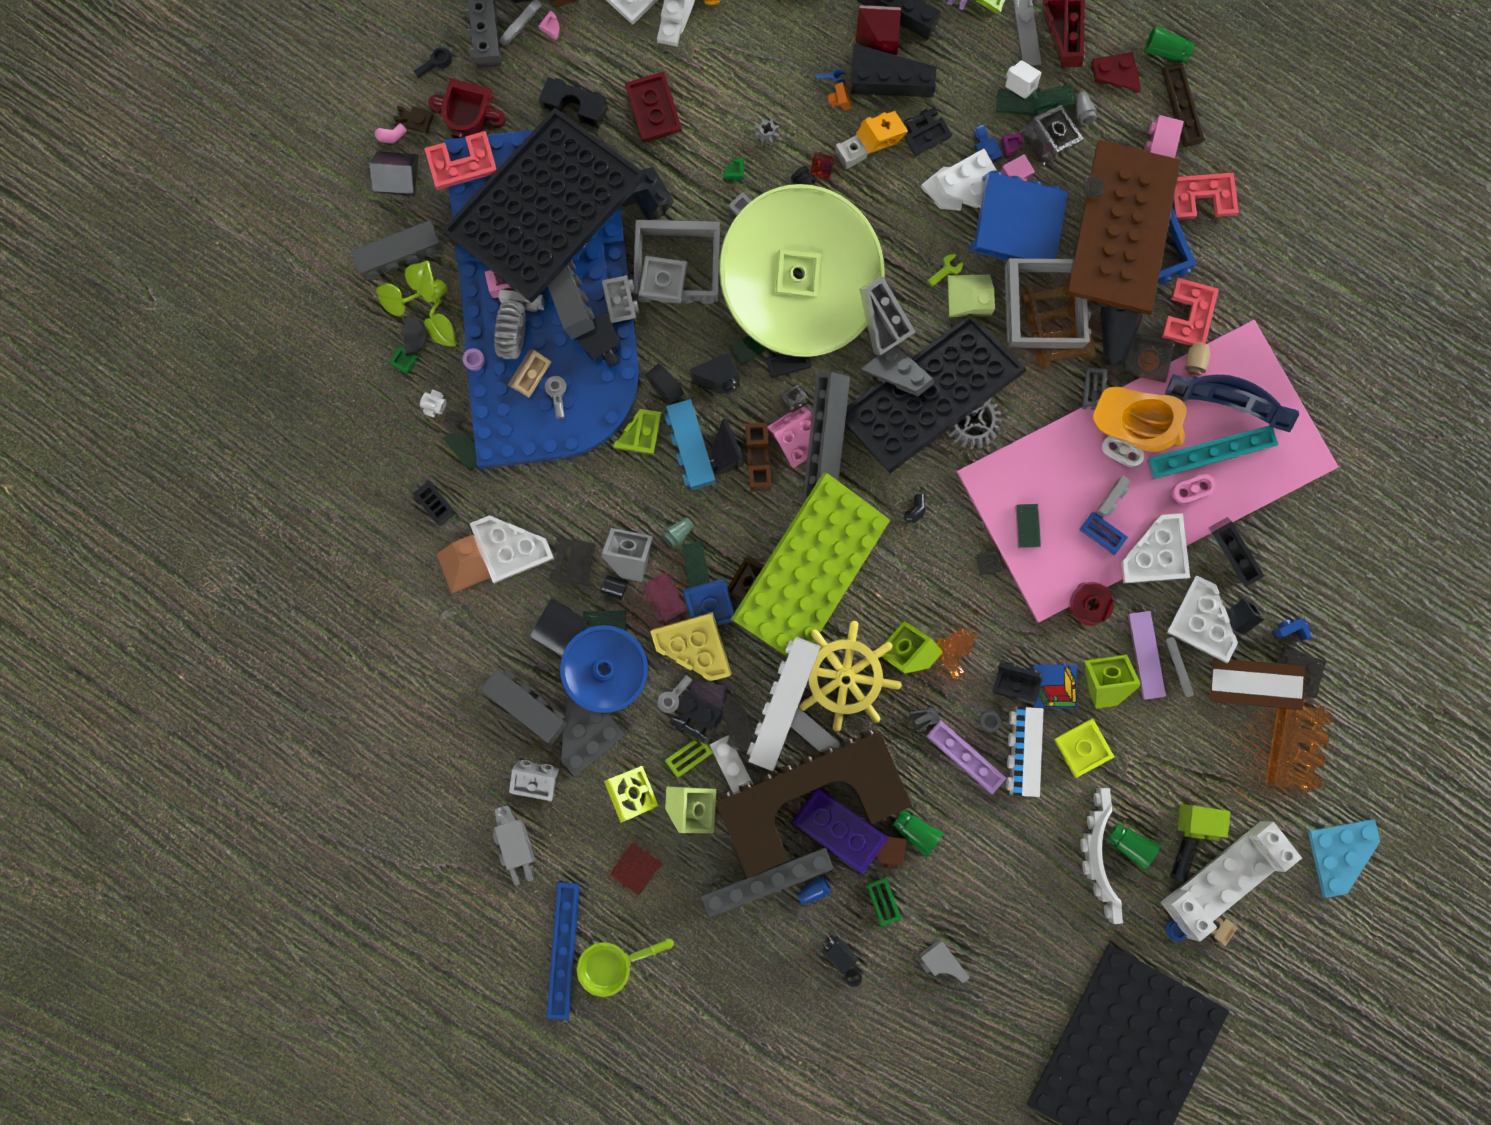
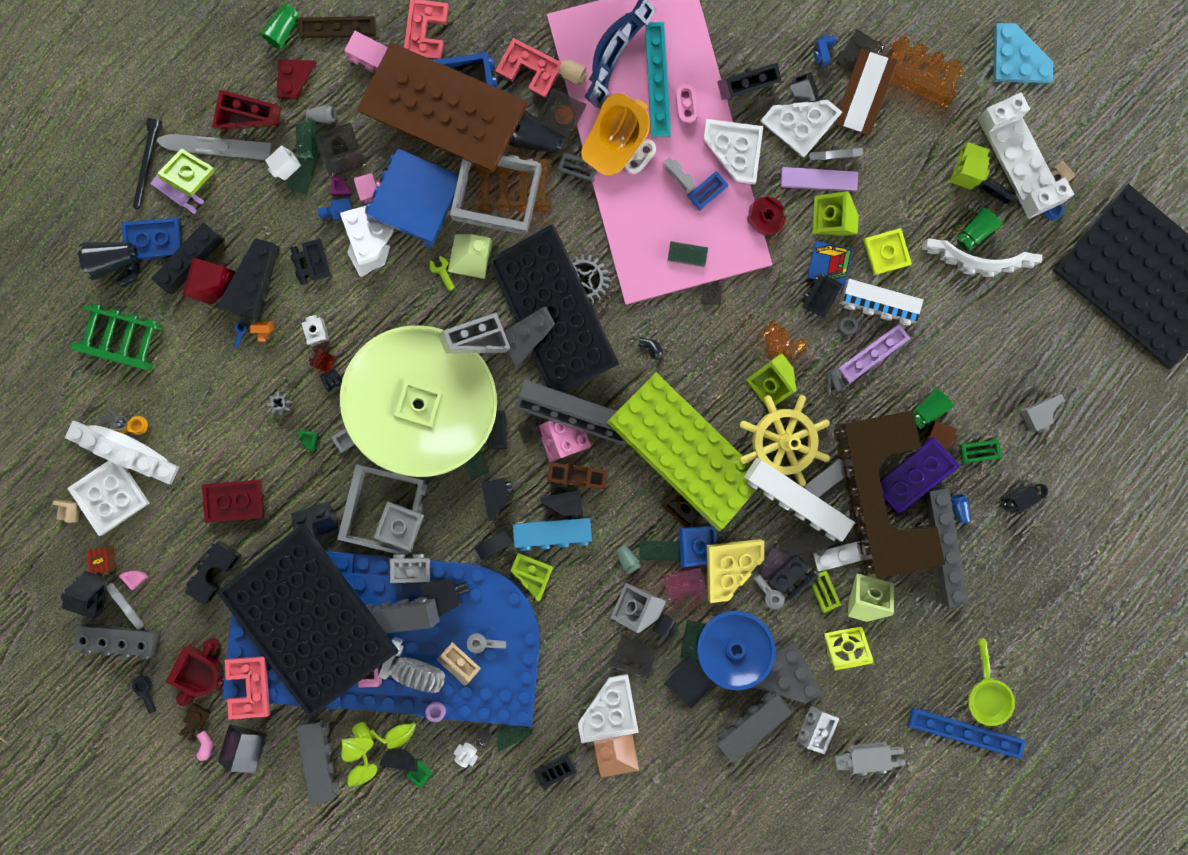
camera: 75 degrees left, 5 degrees up
(635, 868) = (910, 656): clear red piece -> none
(881, 131) = (304, 300): light orange brick -> none
(1093, 187) = (401, 124): clear smoke plate -> none

